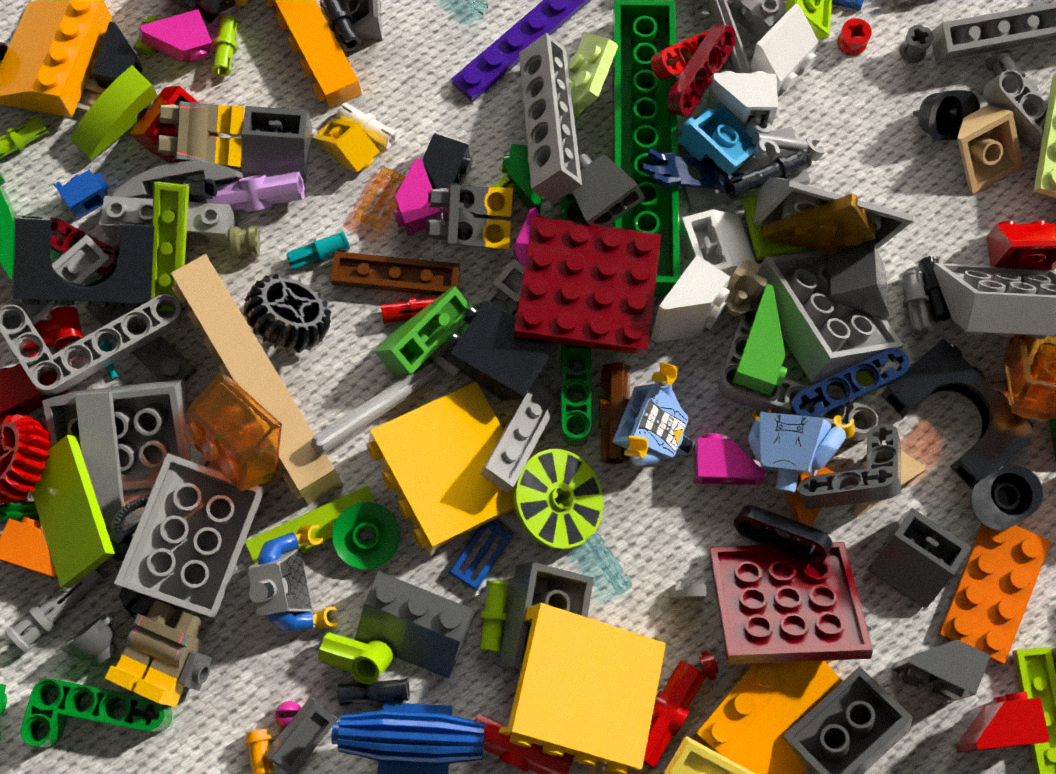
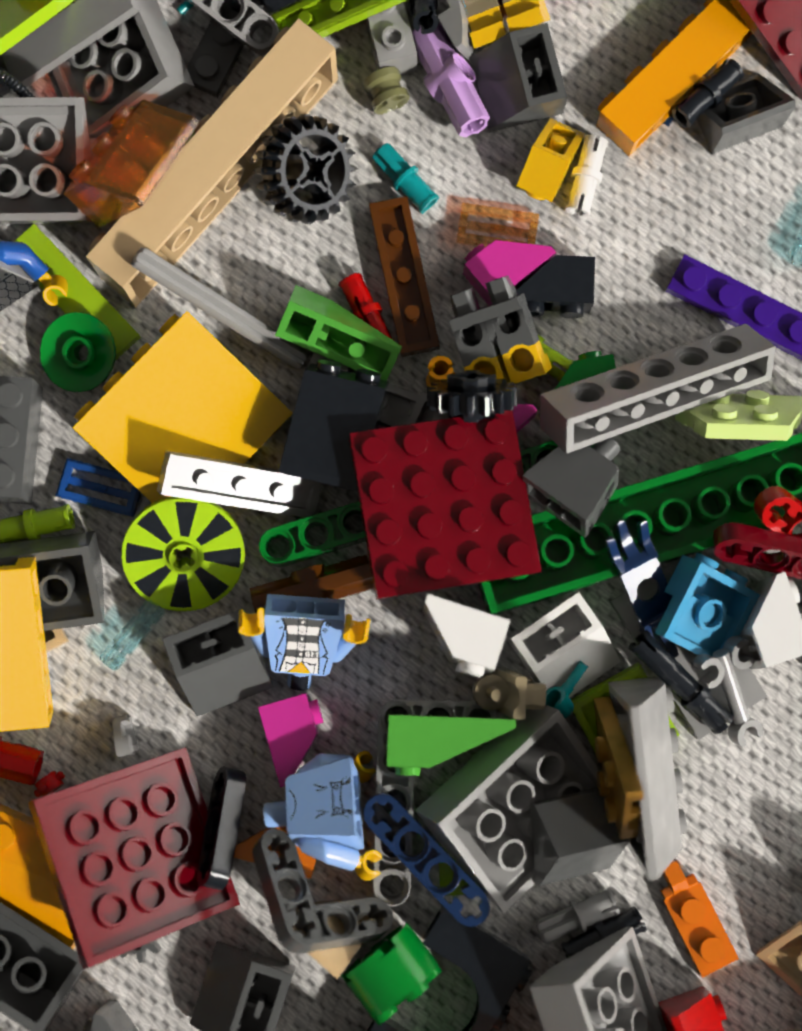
camera: 70 degrees right, 10 degrees up
(483, 269) = (438, 368): none -> light orange pin
(514, 239) = (472, 396): none -> black gear
(651, 498) = (216, 664): none -> dark grey slope
(750, 253) = (559, 696): none -> teal hand
(929, 436) = (391, 972): none -> green brick
(942, 224) = (696, 921): none -> orange hinge

